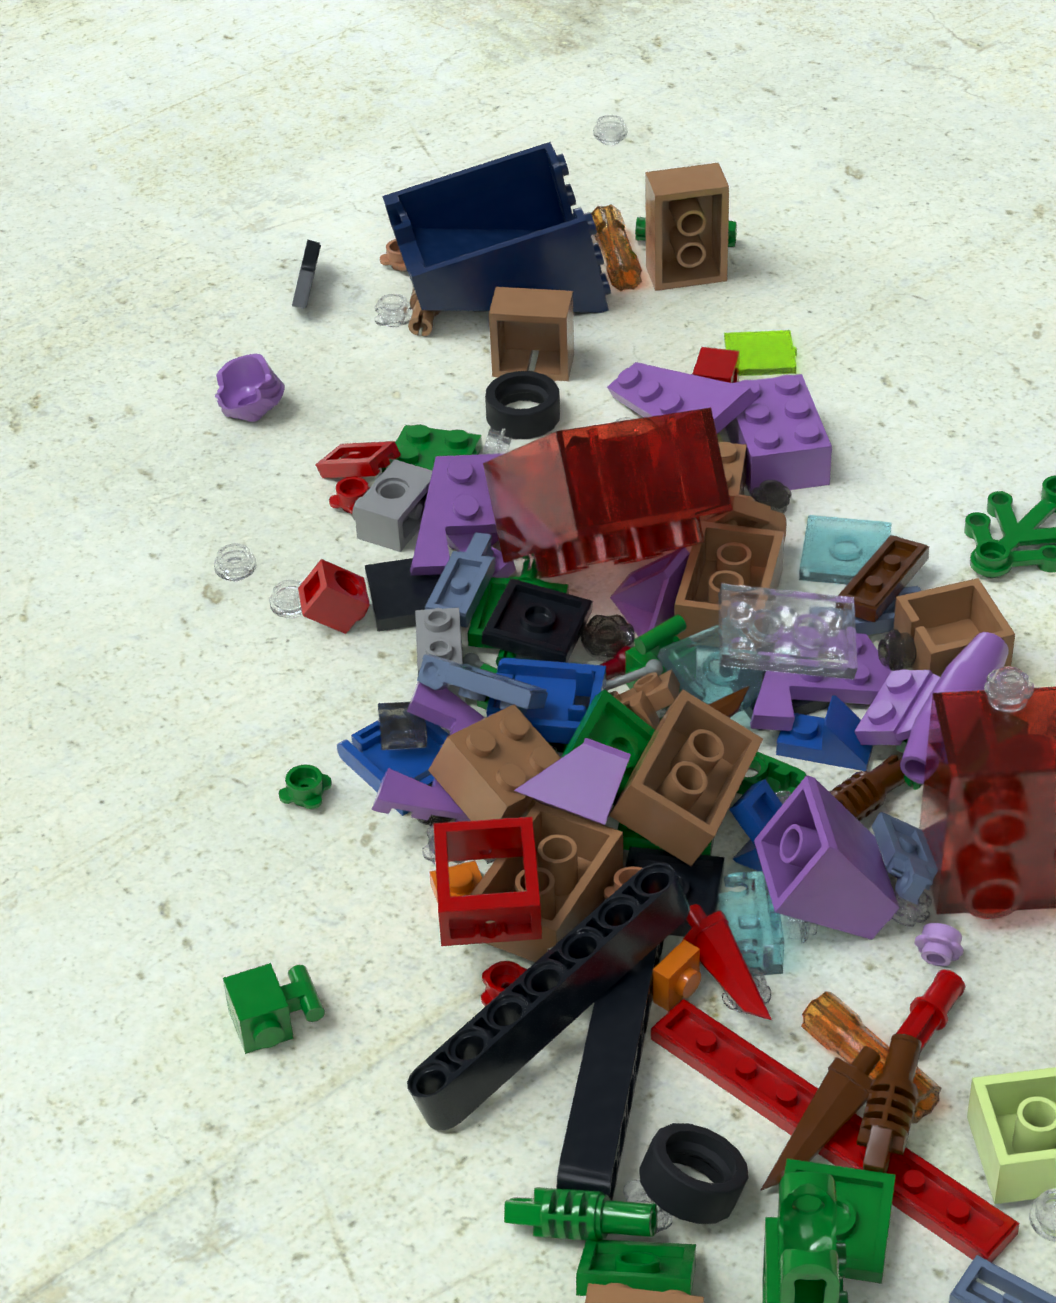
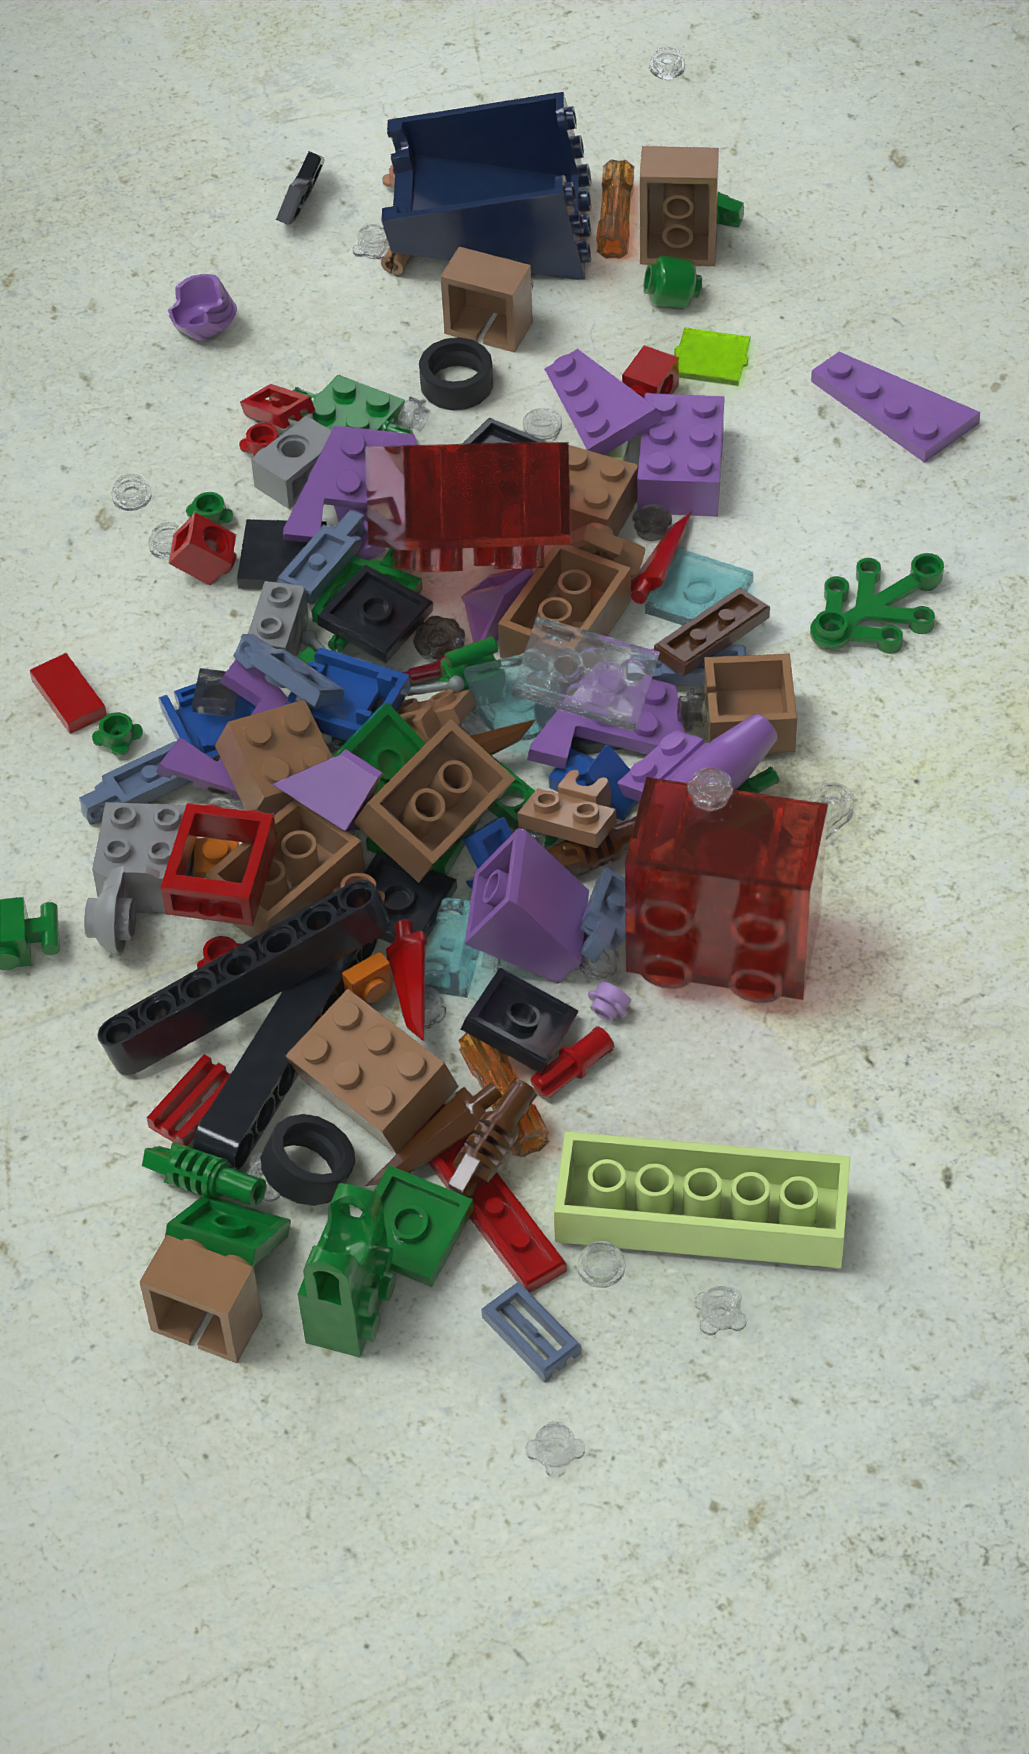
camera: 15 degrees right, 10 degrees up
(236, 759) = (68, 693): none -> red tile
(317, 553) = (210, 506): none -> green plate
(343, 833) = (131, 784): none -> sand blue hinge
(384, 910) = (129, 869): none -> light grey brick
(545, 1108) = (185, 1099): none -> red tile
(698, 295) = (672, 282): none -> green head
(728, 1063) = (372, 1071): none -> medium nougat brick
(798, 530) = (656, 567): none -> red bar
(828, 760) = (573, 813): none -> medium nougat plate
(859, 980) = (519, 1020): none -> black tile
(961, 365) = (898, 408): none -> medium lavender wing

